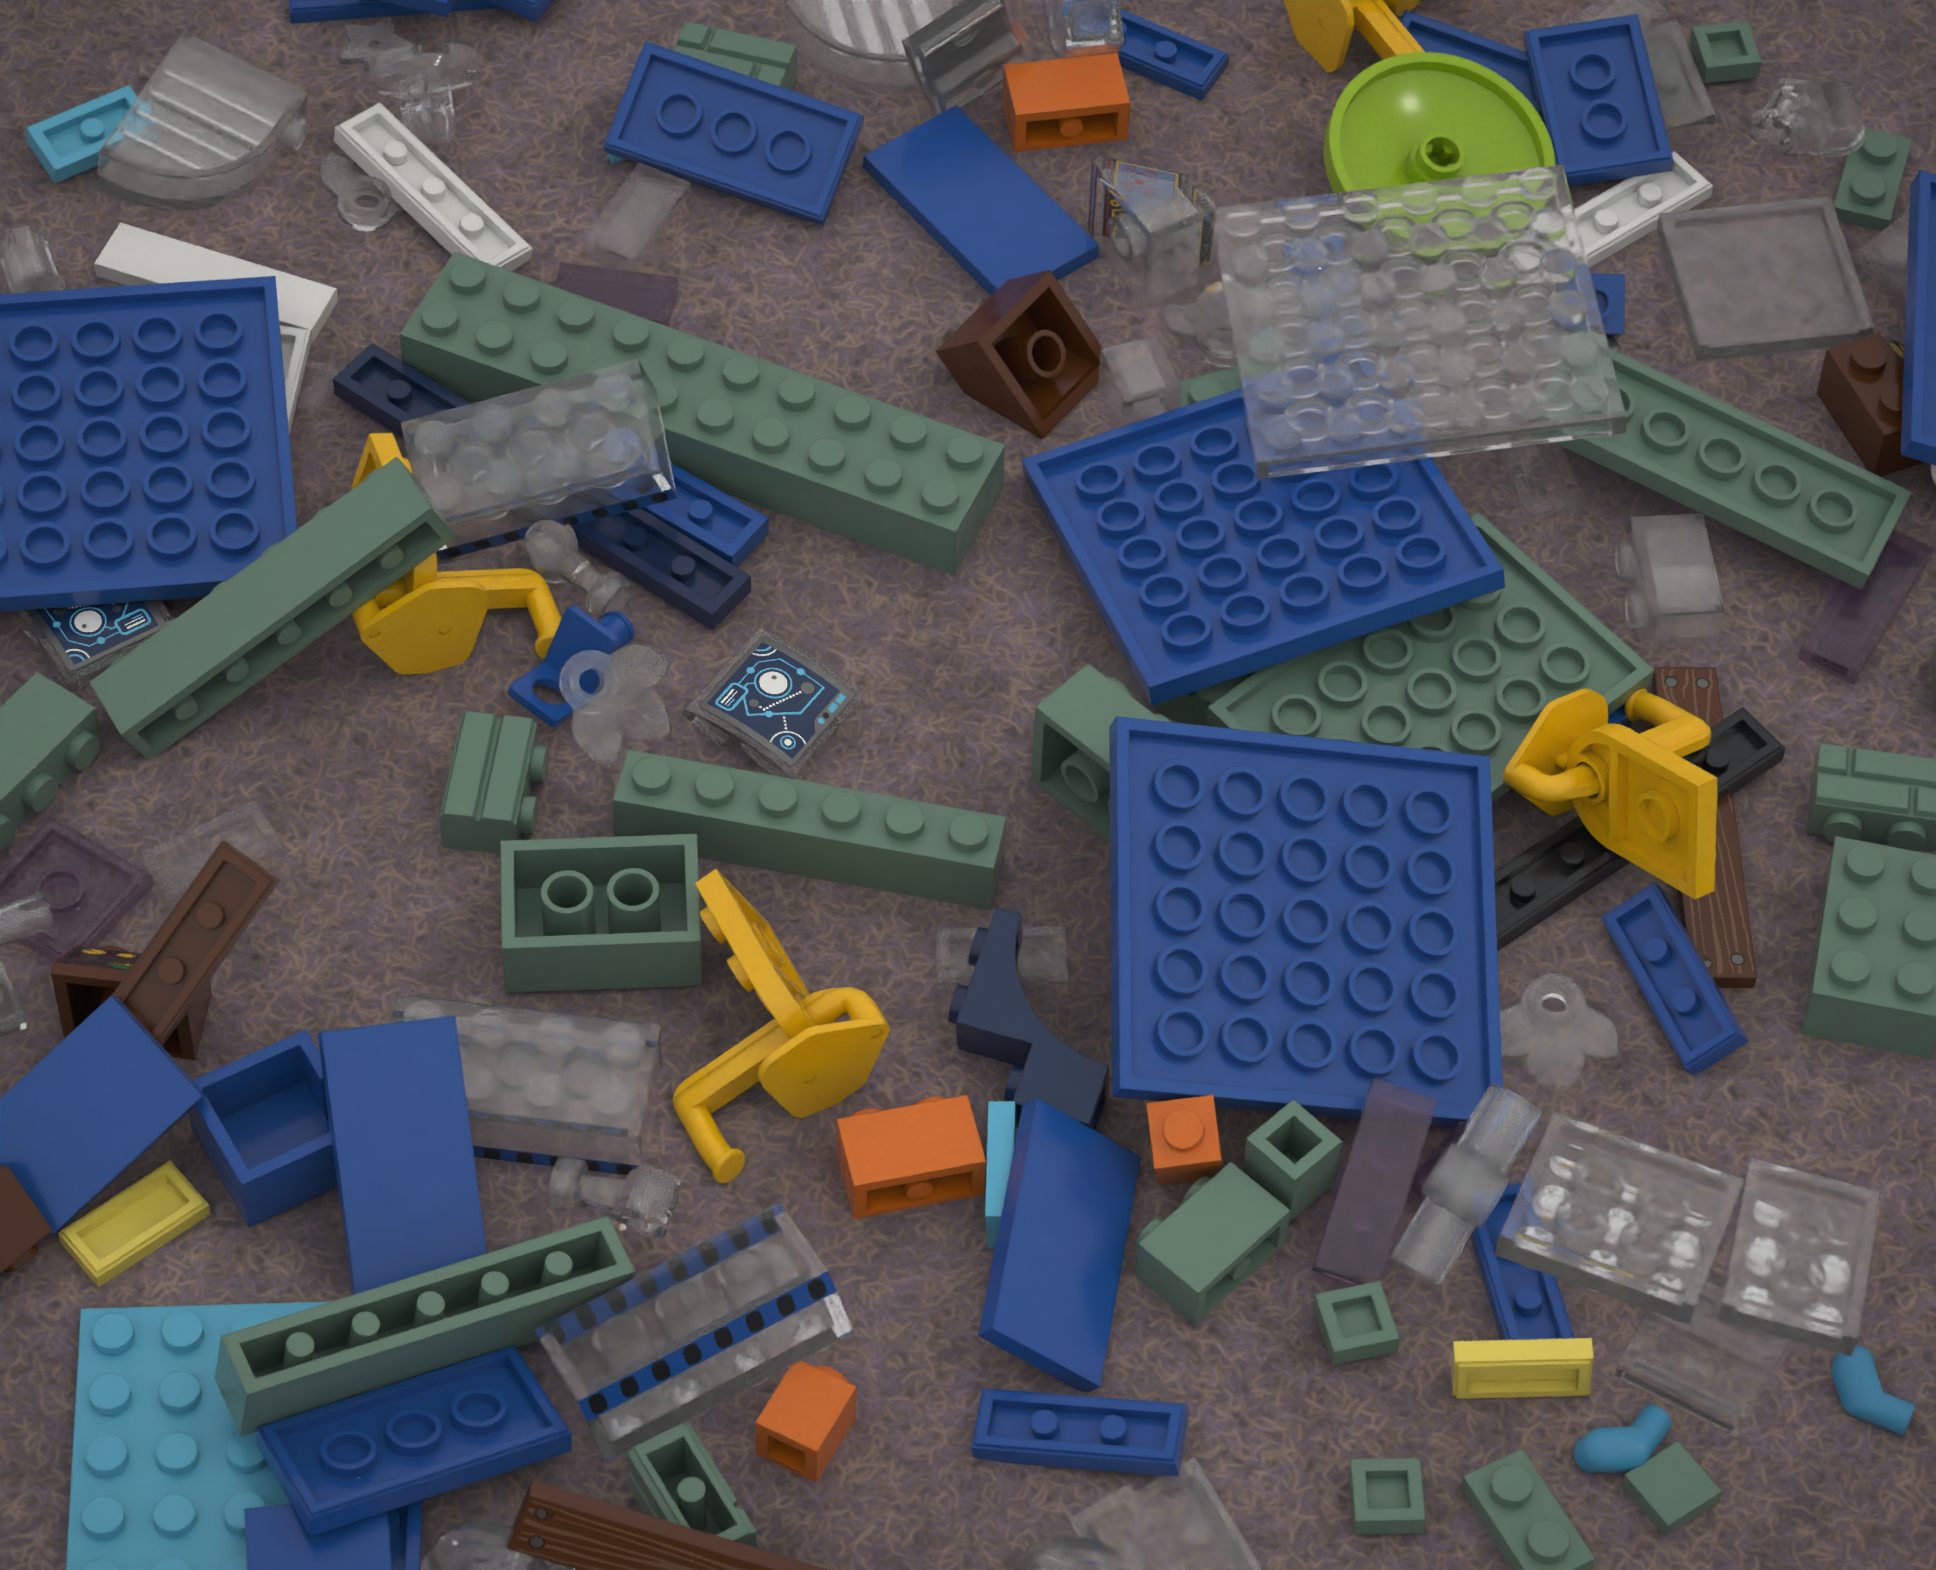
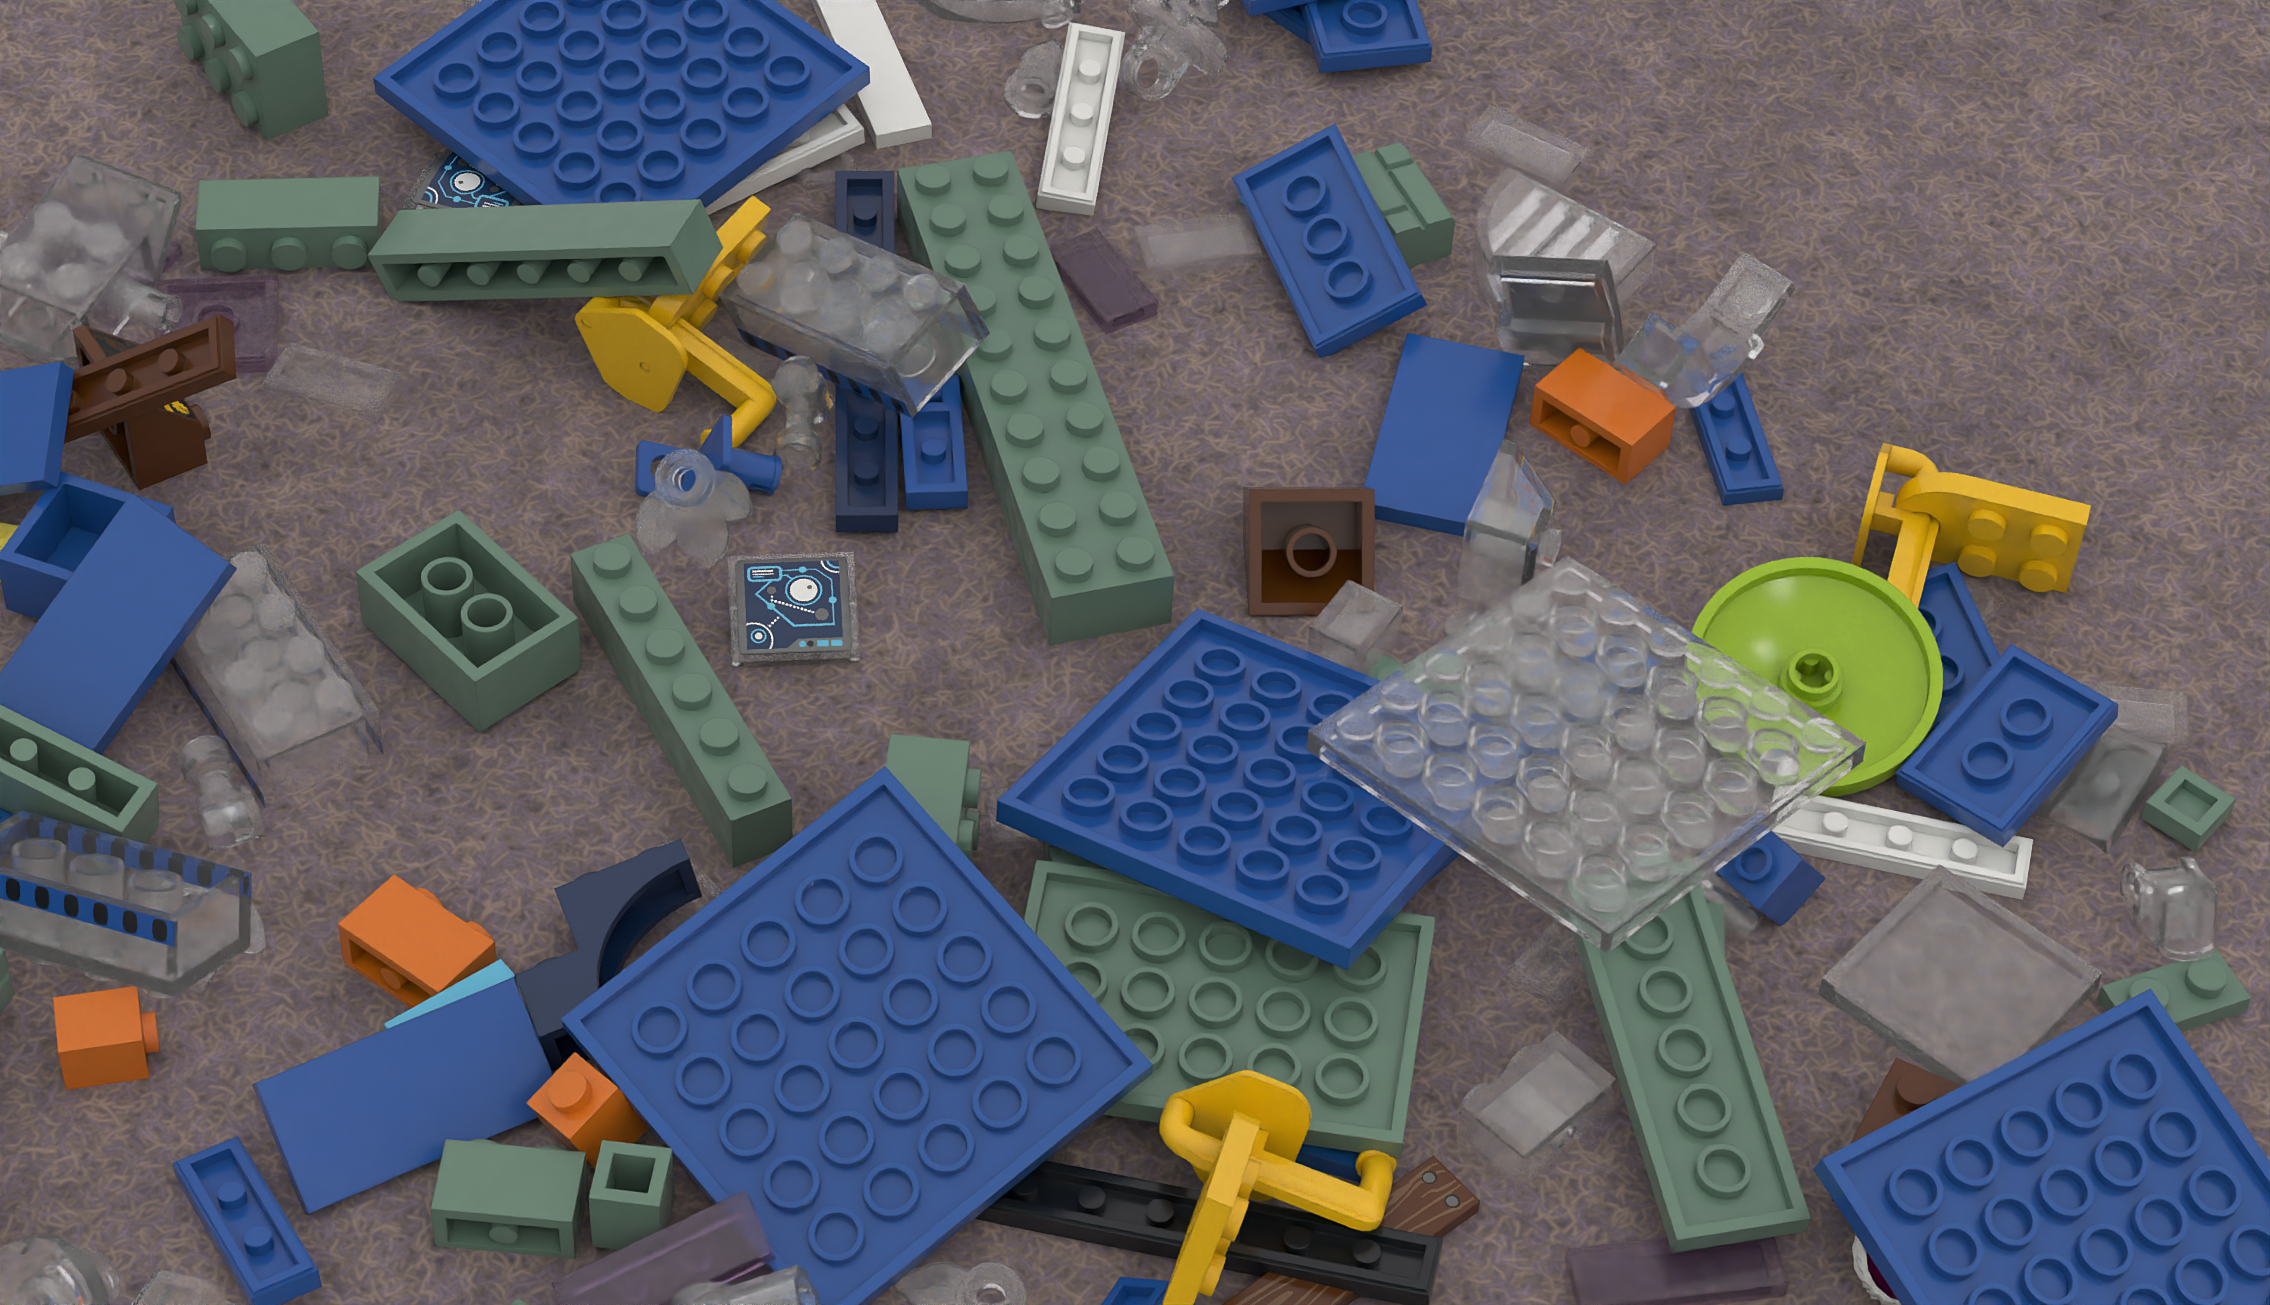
camera: 50 degrees right, 5 degrees down
(492, 782) = (542, 489): sand green brick -> none
(796, 1056) = (481, 777): yellow plate -> none

